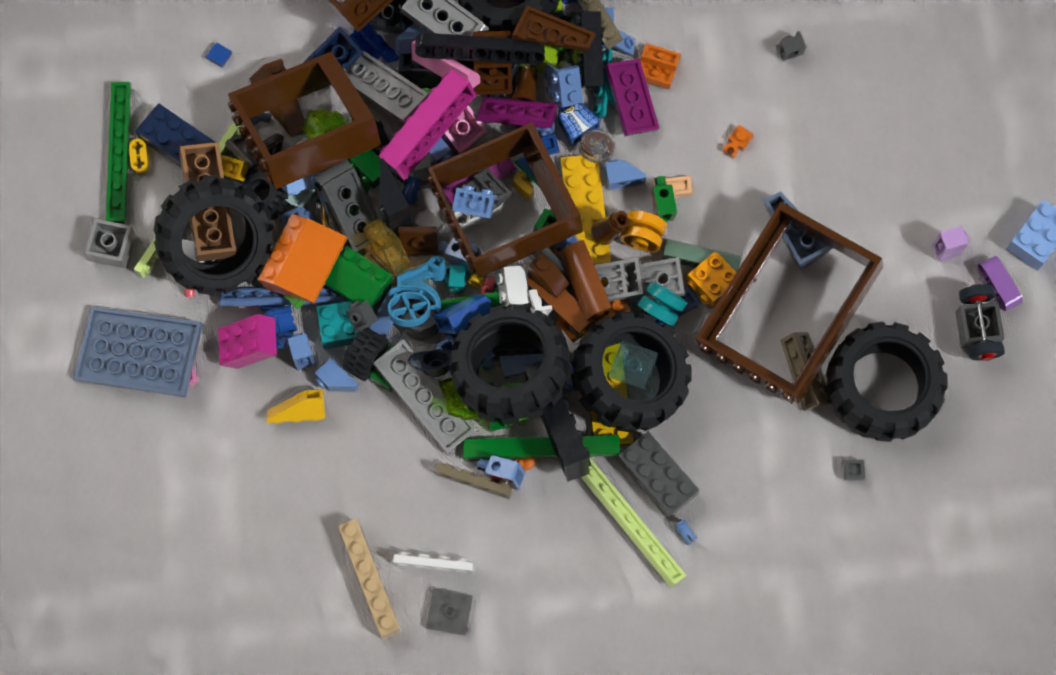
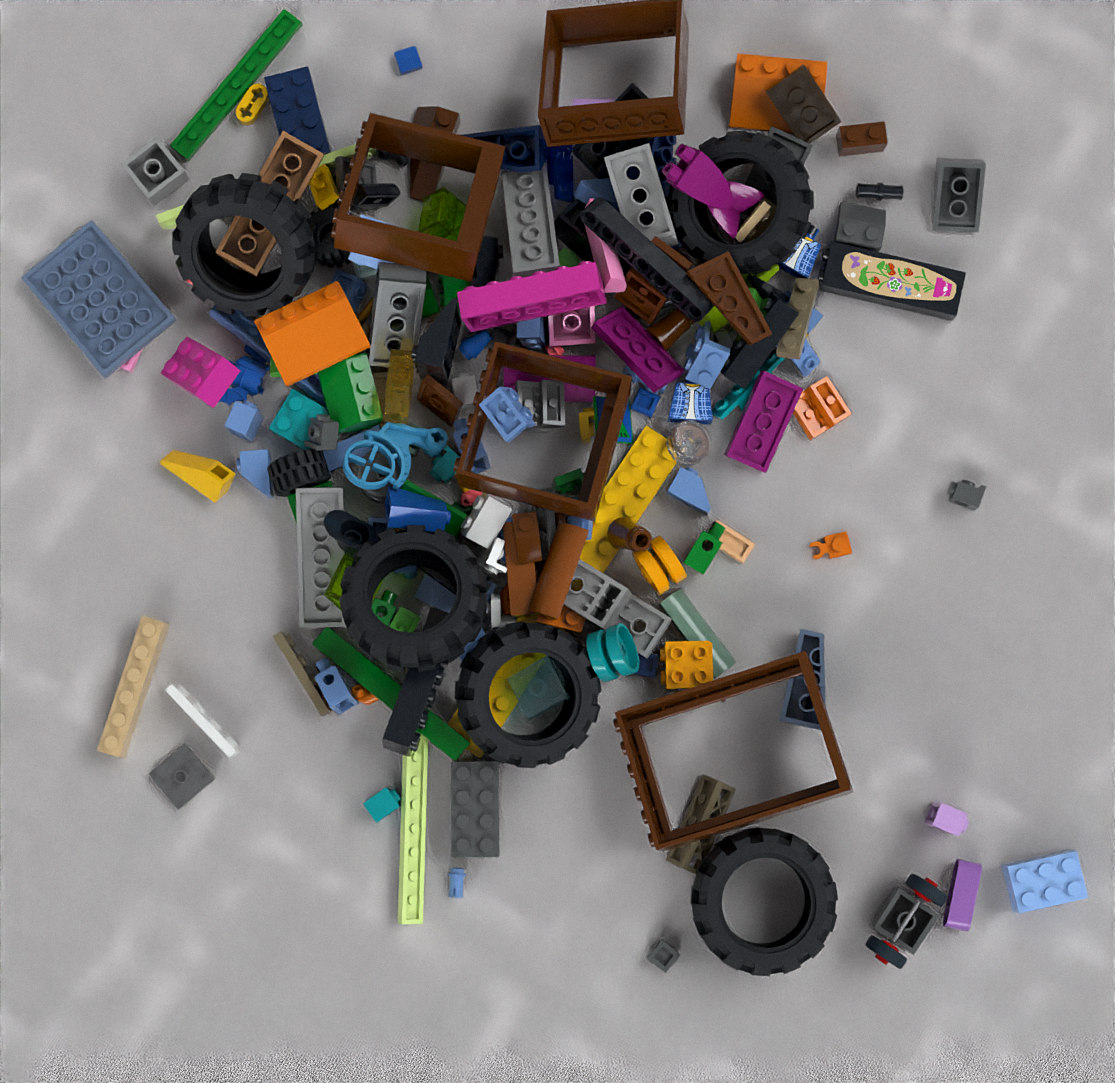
camera: 40 degrees right, 10 degrees up
(596, 520) = (383, 804): none -> teal brick

